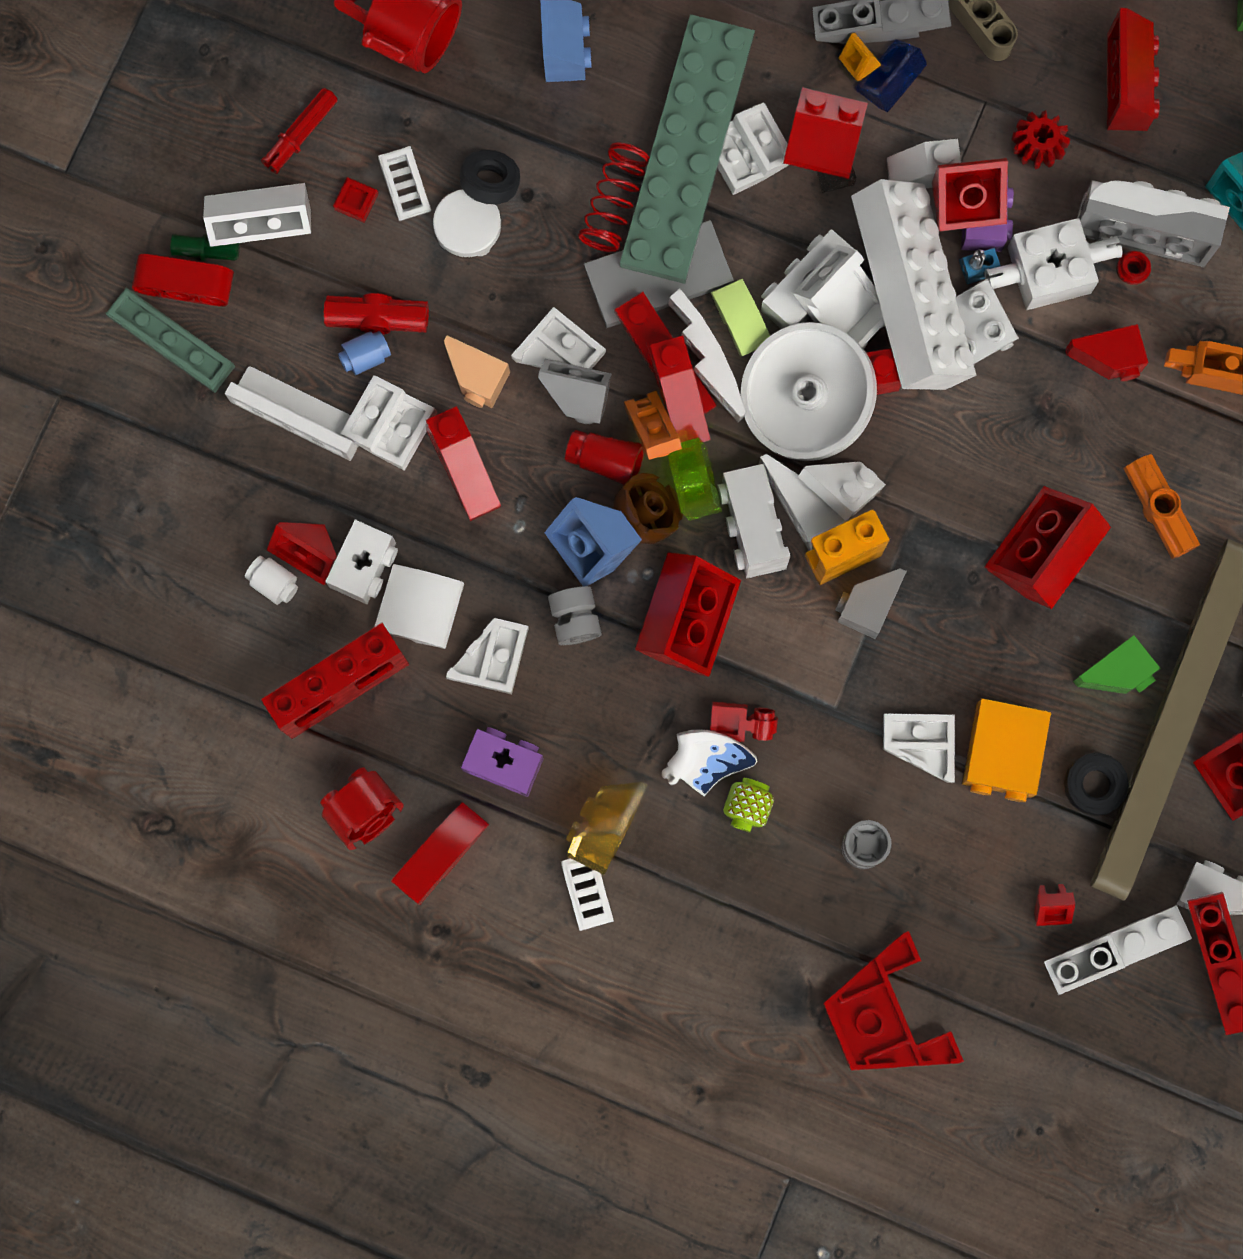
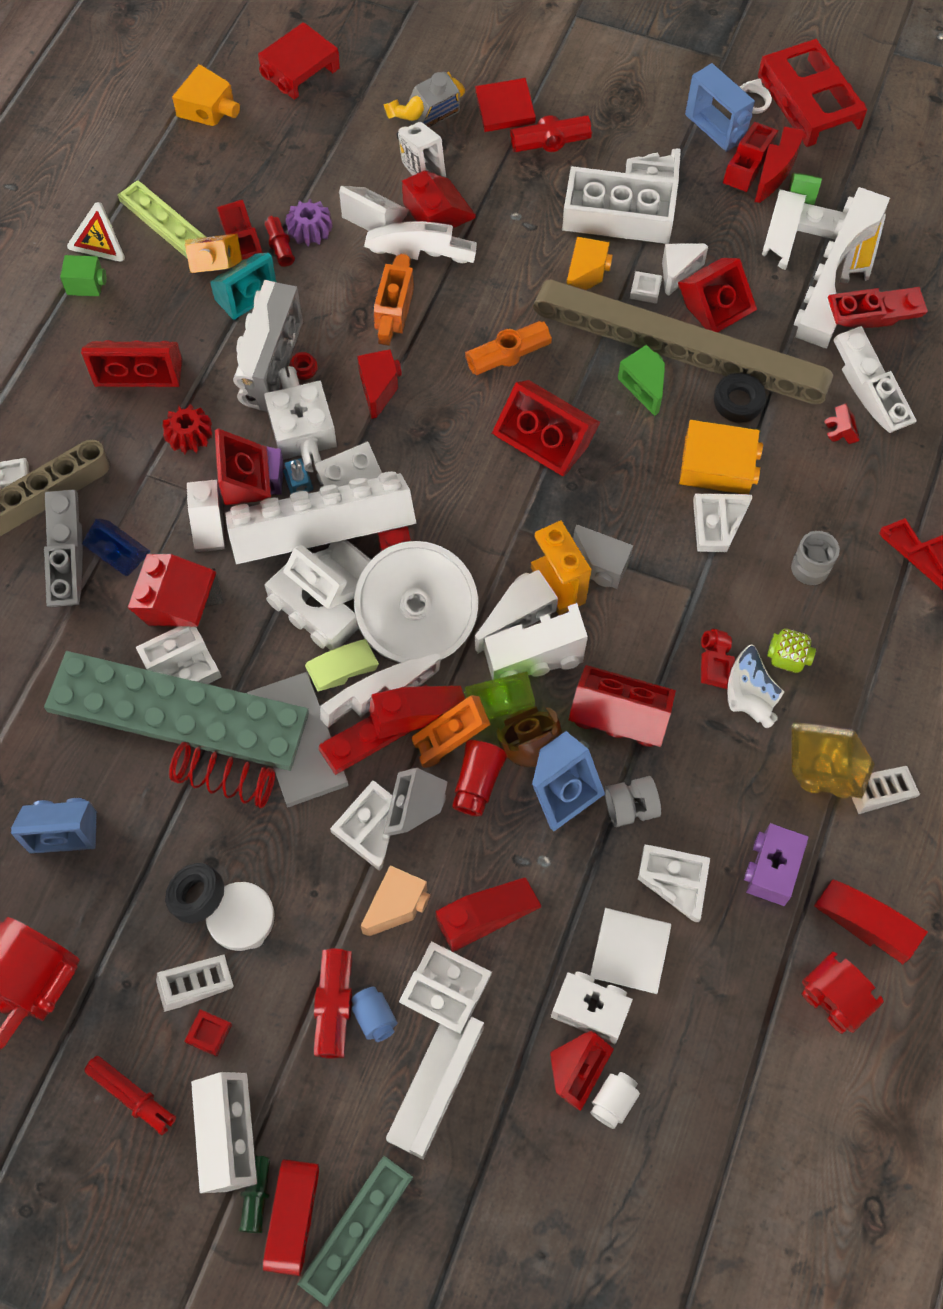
camera: 95 degrees left, 15 degrees down
(335, 681) = (721, 1020): red window -> none
(843, 485) = (503, 573): white wing -> none
(858, 58) = (99, 569): light orange slope -> none

